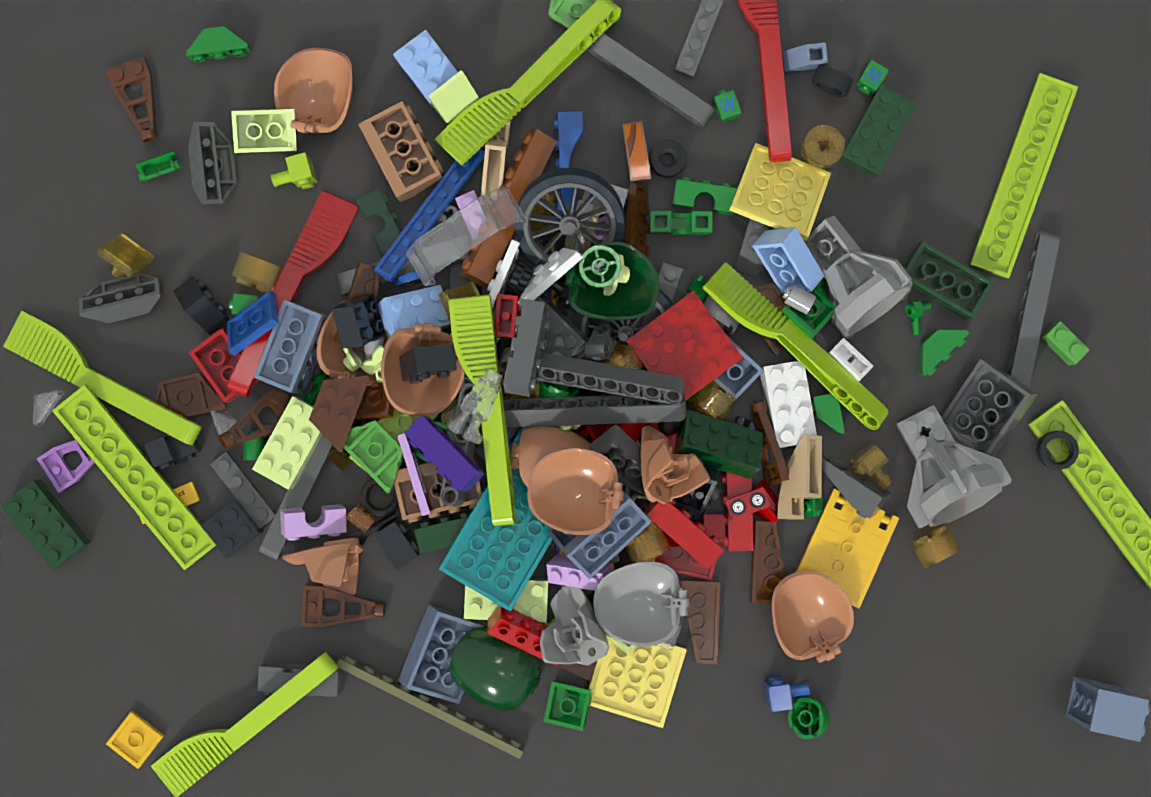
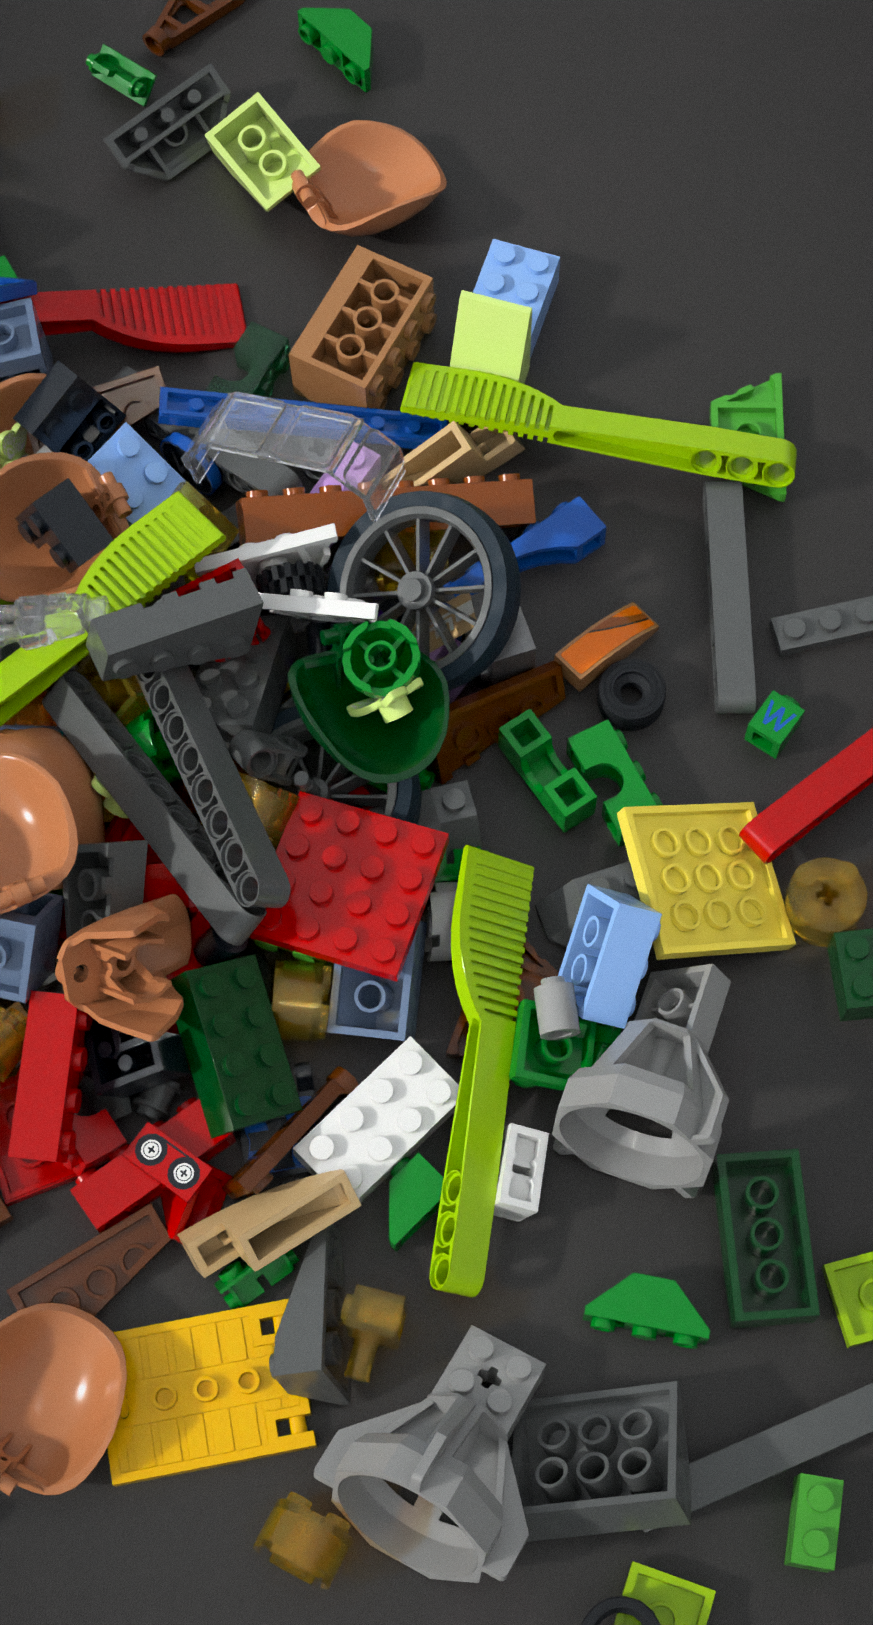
camera: 55 degrees right, 20 degrees down
(255, 271) = (52, 255): clear yellow brick -> none
(299, 172) = (240, 229): lime brick -> none
(915, 311) = (681, 1226): green piece -> none

